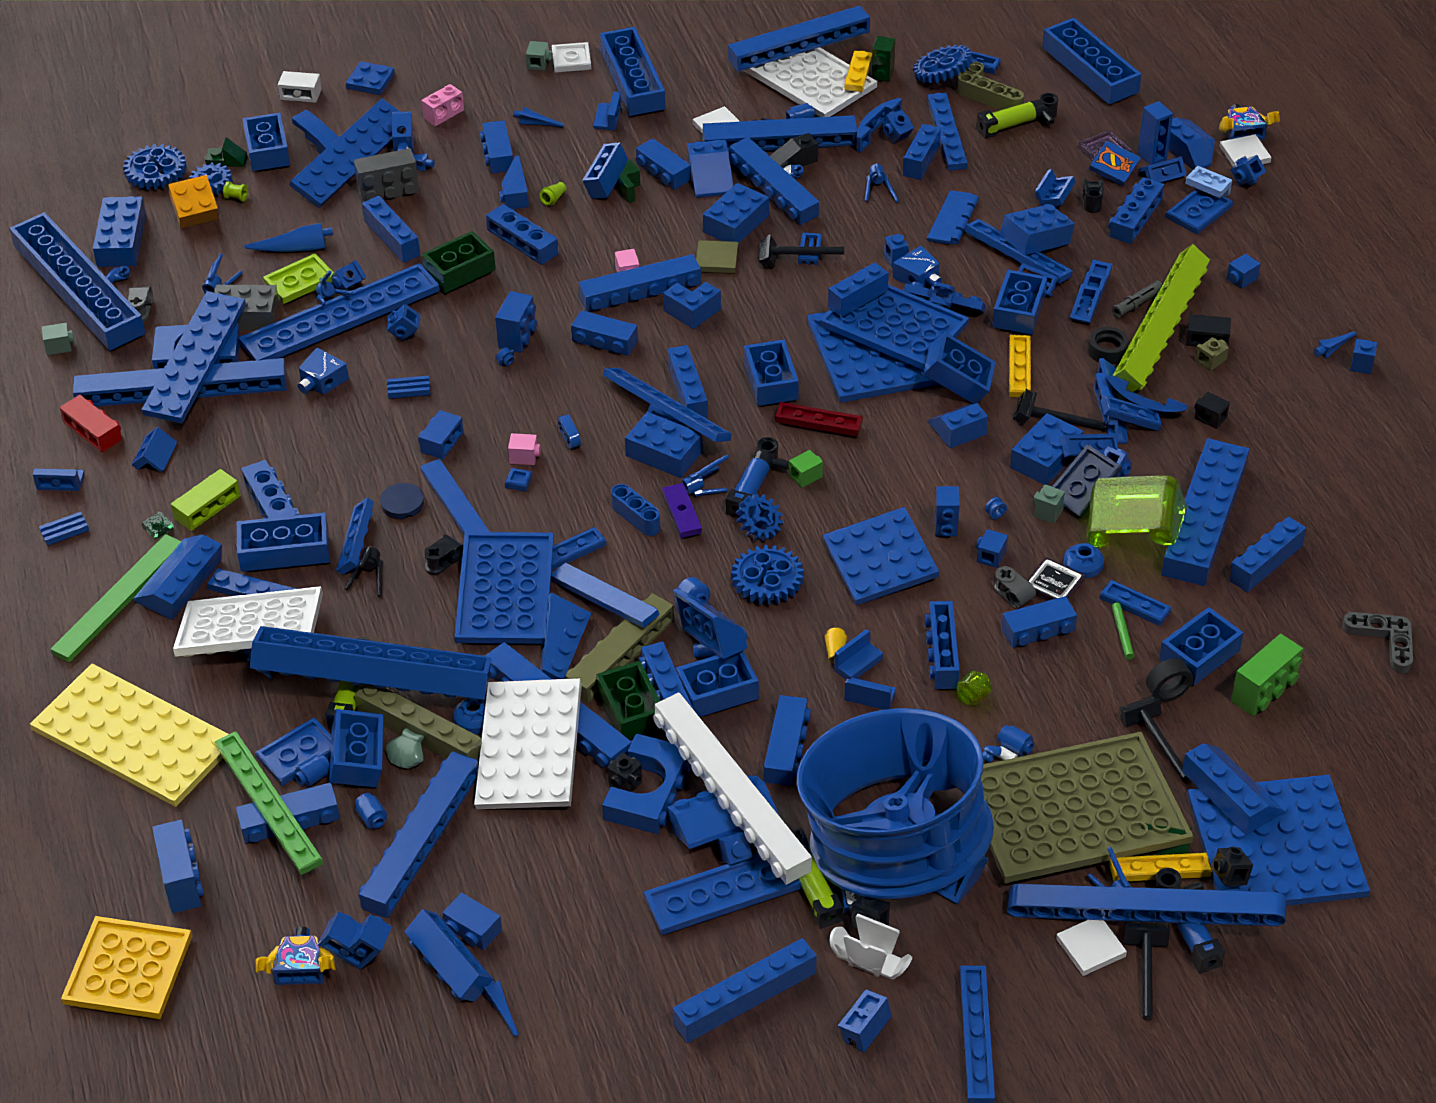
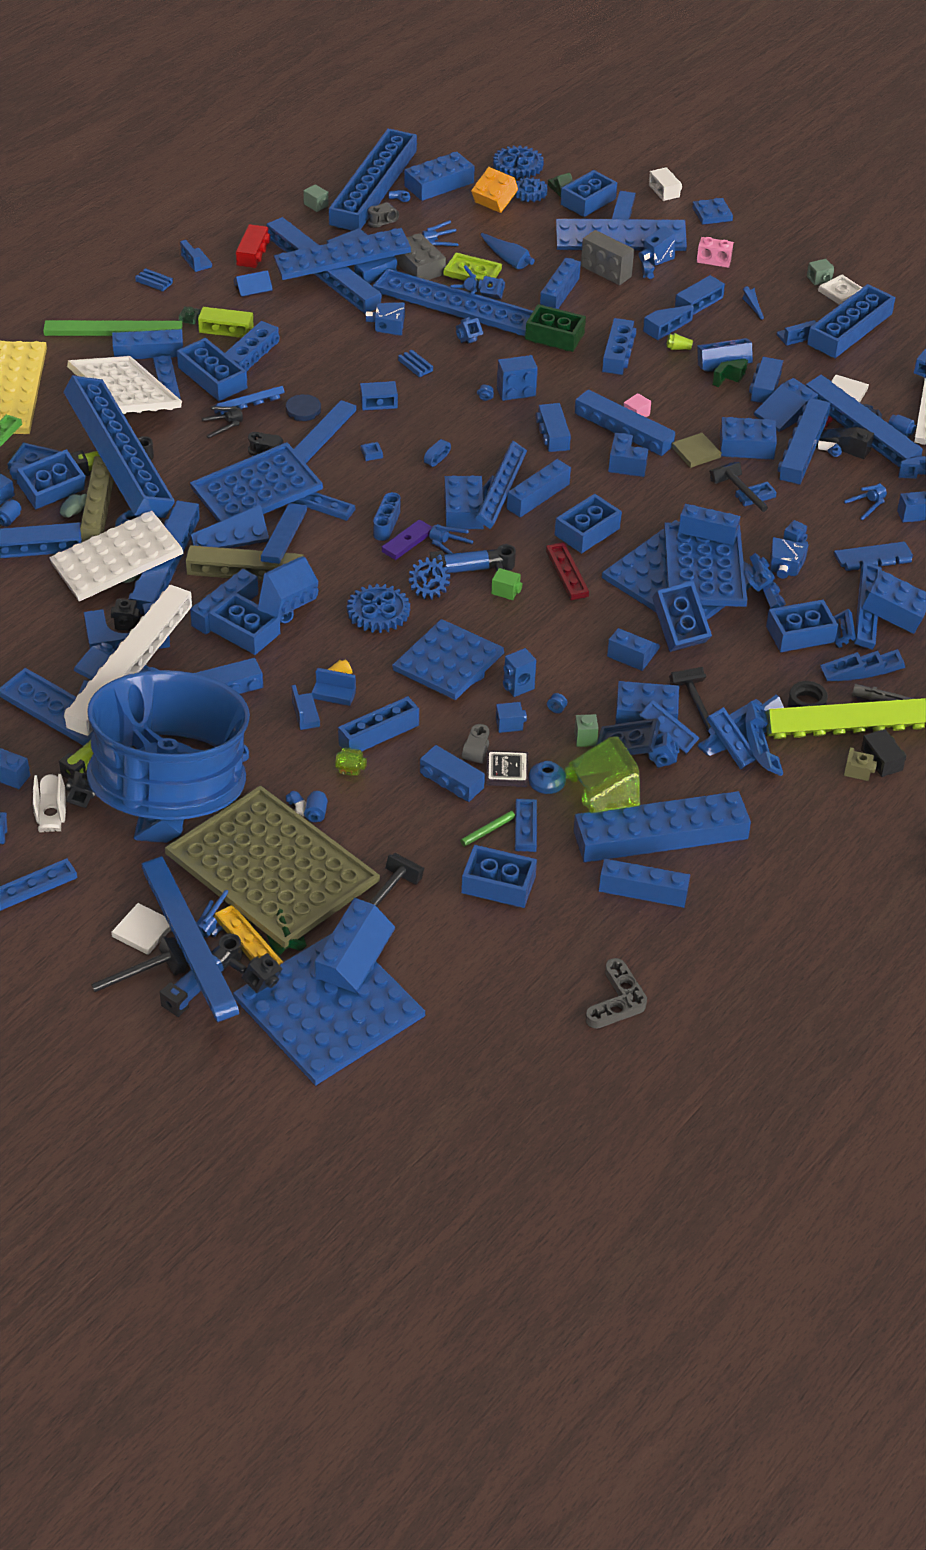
camera: 55 degrees right, 0 degrees up
(235, 191) = (529, 204): lime bush -> none
(523, 449) = (399, 438): bright pink brick -> none
(629, 699) = (197, 577): dark green brick -> none
(695, 588) = (328, 577): blue head -> none
(1019, 365) = (736, 658): yellow tile -> none
(1164, 671) = (452, 865): black tyre -> none
(1211, 410) = (788, 789): black brick -> none
(1267, 675) = (496, 926): bright green brick -> none

